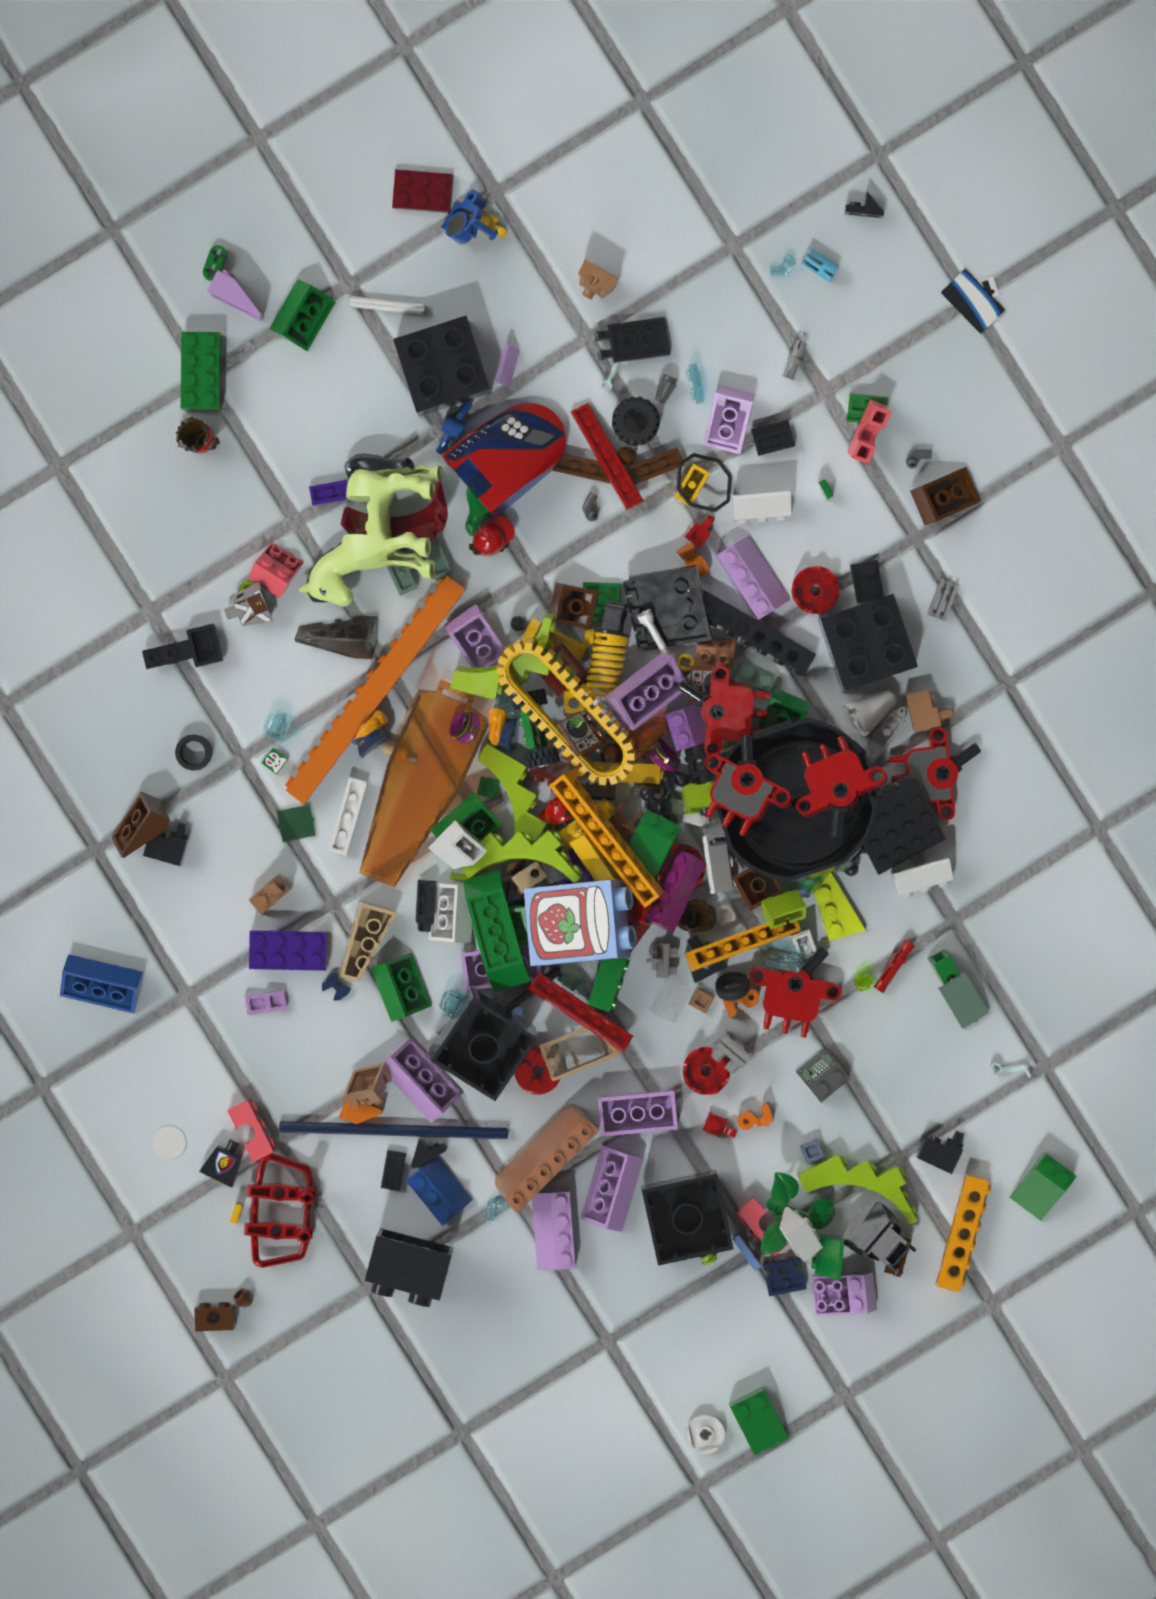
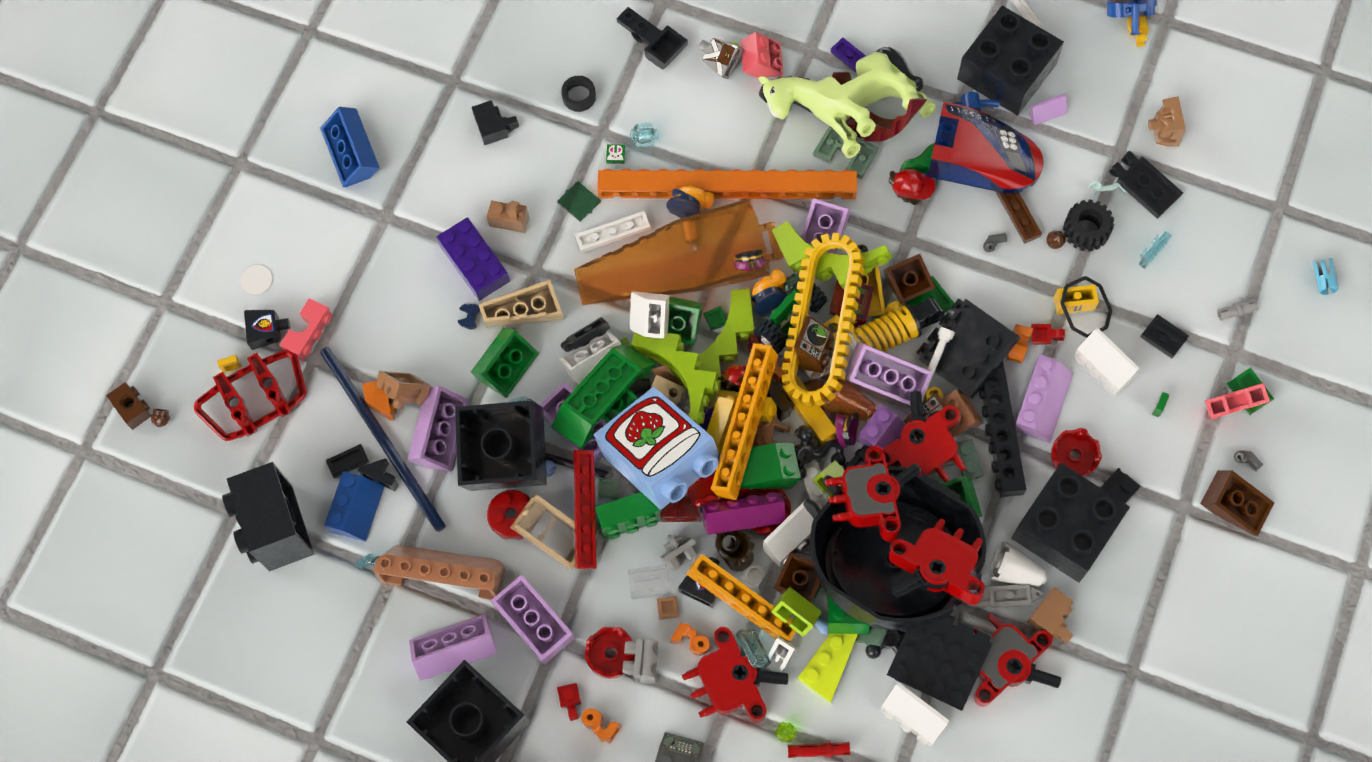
camera: 55 degrees right, 20 degrees down
(140, 824) = (497, 90): reddish brown slope -> none
(265, 1002) = (419, 272): lavender slope -> none
(349, 638) = (750, 141): clear smoke wedge -> none
(553, 1230) = (384, 625): lavender slope -> none
(607, 456) = (1043, 224): red tile -> none
(654, 466) = (1064, 264): reddish brown plate -> none
(665, 388) = (1131, 231): dark grey cone -> none
(729, 419) = (1149, 293): lavender slope -> none
(732, 978) = (698, 621): black tyre -> none
(785, 267) = (1298, 253): clear light blue arm -> none
(937, 614) = (1170, 559): light grey tile -> none

